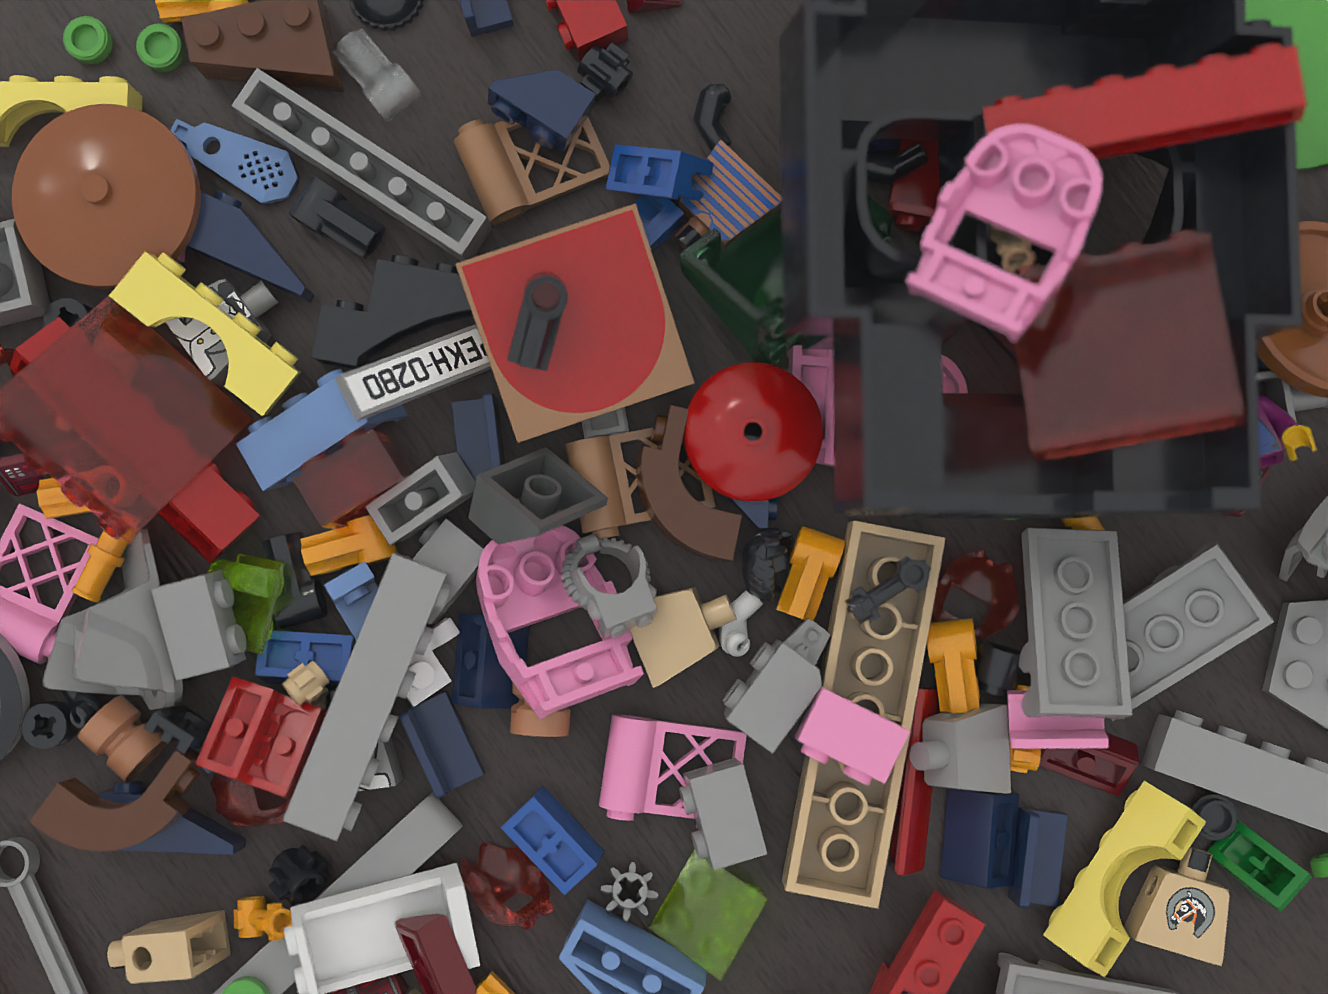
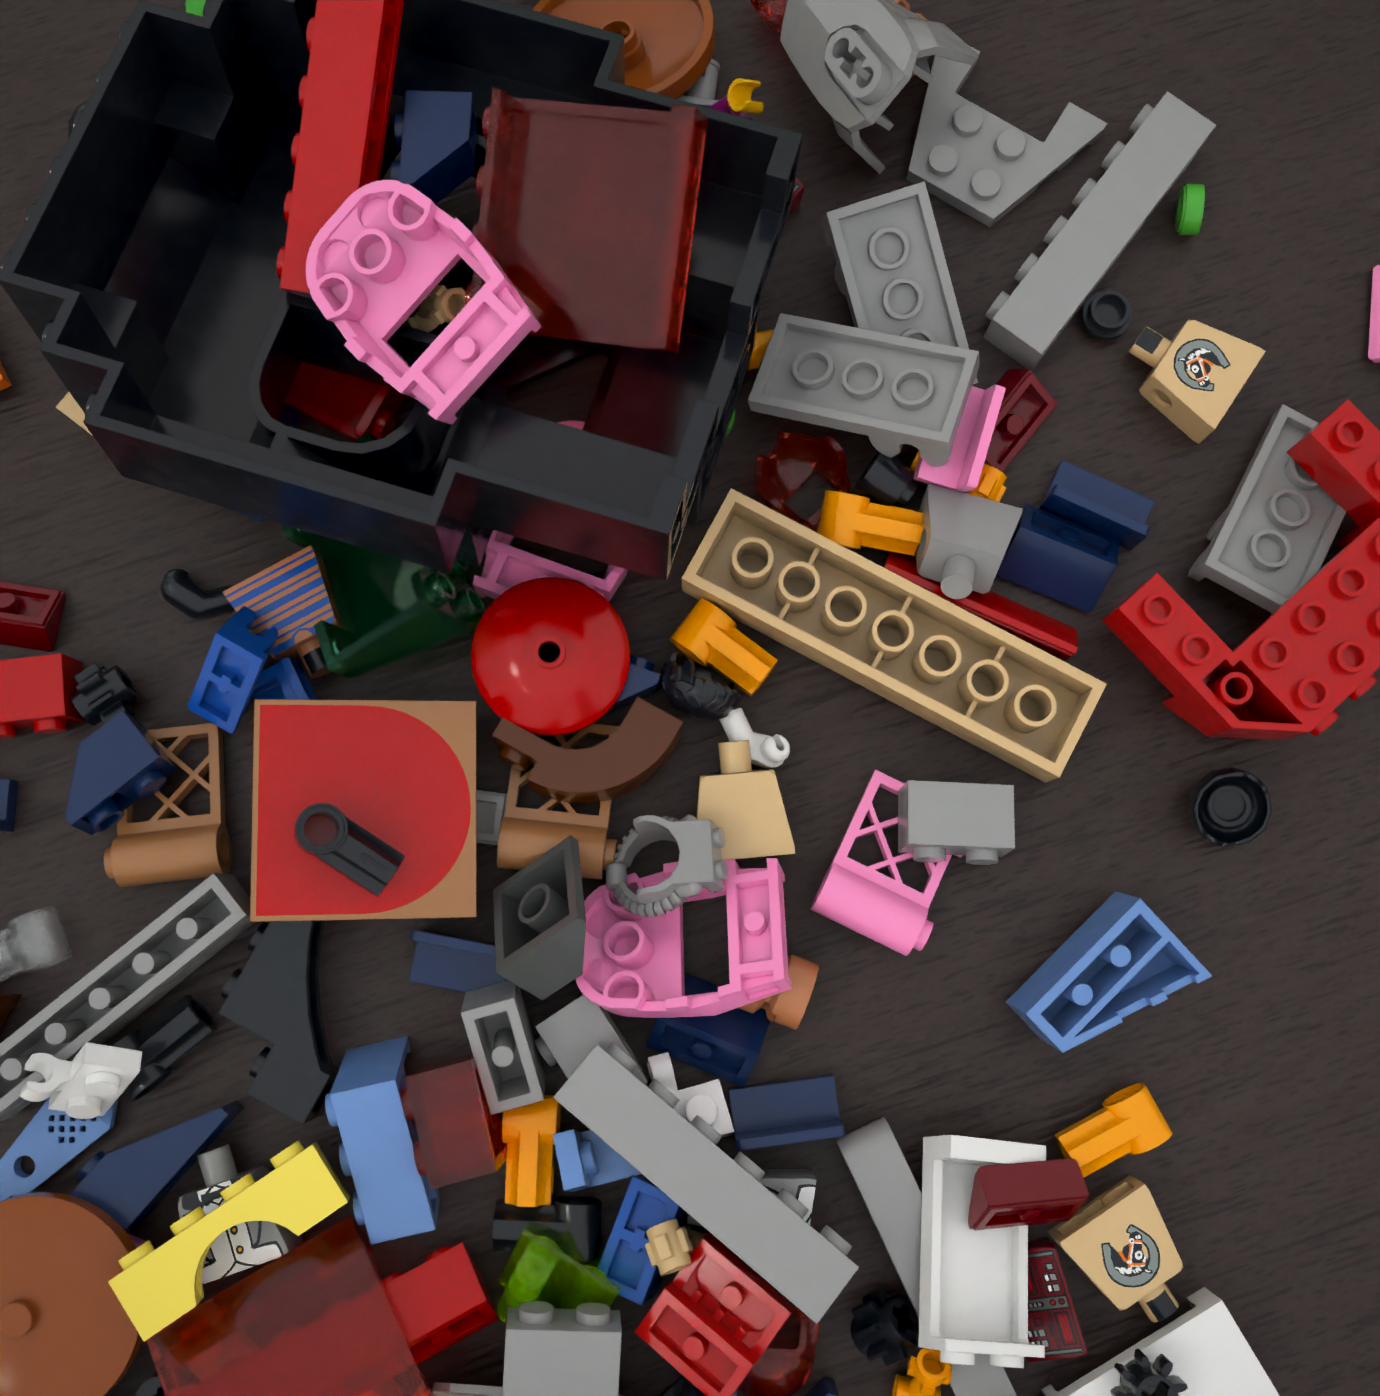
camera: 75 degrees left, 5 degrees down
(289, 174) = (85, 1084): none -> white plate
(413, 373) = (359, 1010): tile -> none
(501, 875) = (950, 1085): clear red helmet -> none
(553, 840) = (930, 1019): blue hinge -> none
(629, 879) = (1019, 939): light grey gear -> none
(708, 915) = (1061, 872): clear neon green hinge -> none
(778, 687) = (835, 716): light grey hinge -> none
(850, 735) = (912, 650): bright pink brick -> none
(889, 168) = (319, 413): black arm -> none
(908, 575) = (757, 537): black bar -> none
(1147, 830) = (1101, 378): light yellow arch -> none
(1155, 195) = (435, 141): none -> dark blue slope
(1259, 867) = (1174, 282): green slope -> none

